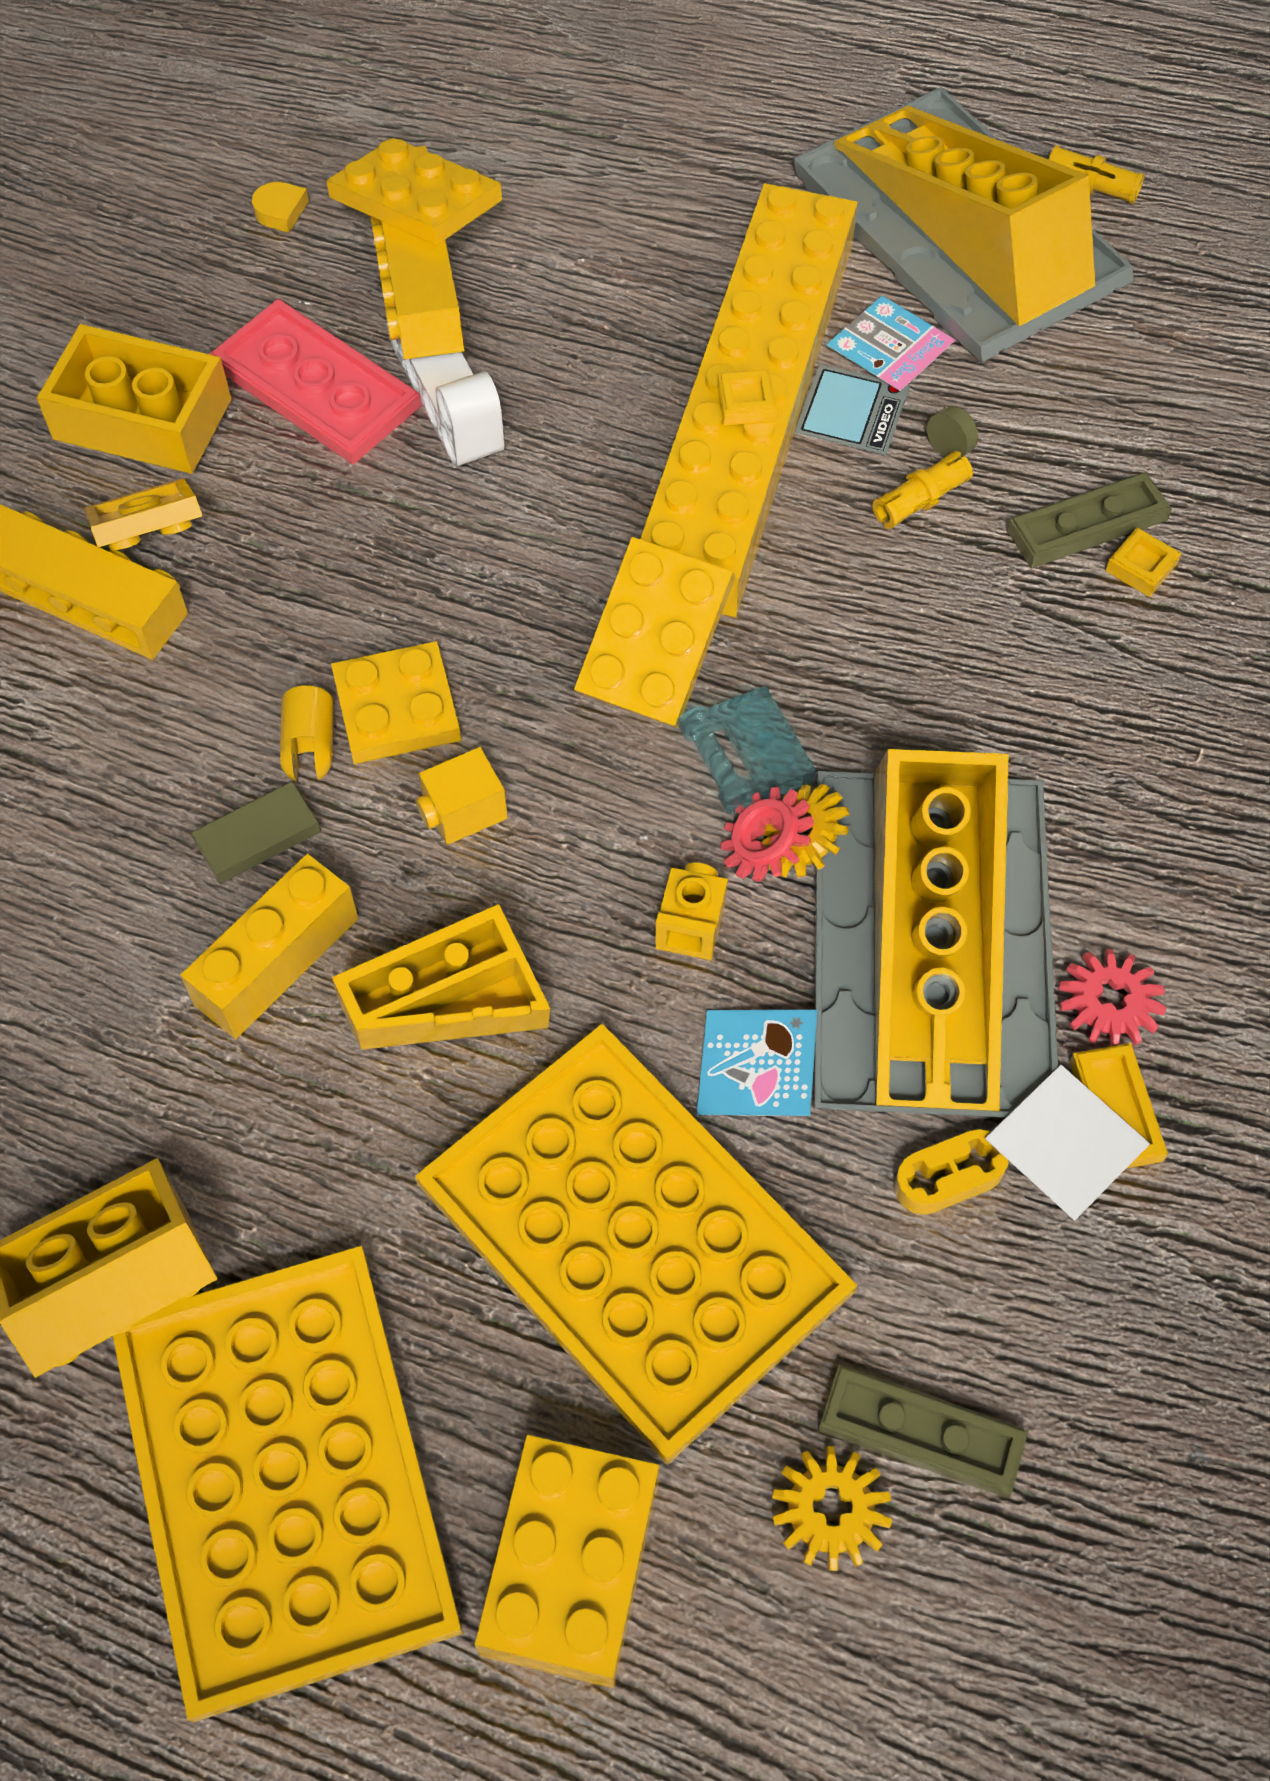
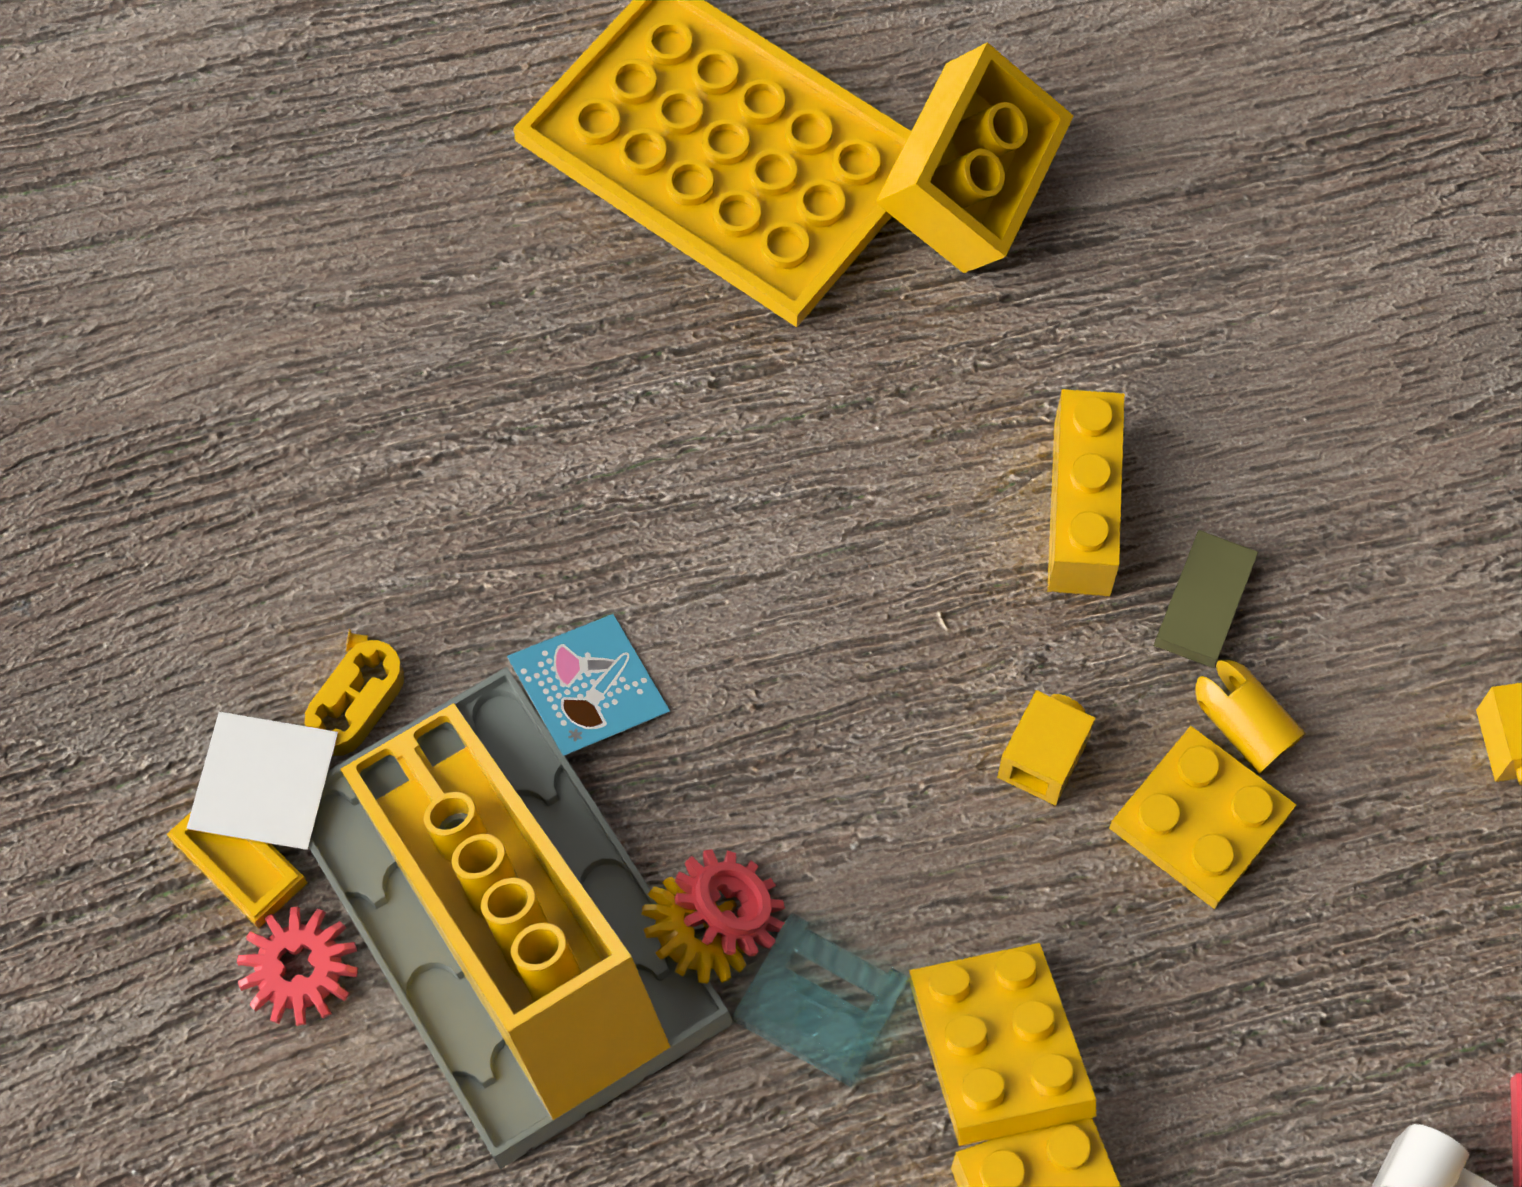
camera: 145 degrees right, 5 degrees up
(444, 987) = (902, 549): yellow wedge -> none
(568, 1561) = (467, 213): yellow brick -> none
(636, 1240) = (590, 471): yellow plate -> none
(691, 911) = (735, 753): yellow brick -> none
(812, 1526) = (290, 402): yellow gear -> none
(922, 1223) = (353, 639): none -> yellow piece
(924, 1431) = (257, 479): olive tile -> none

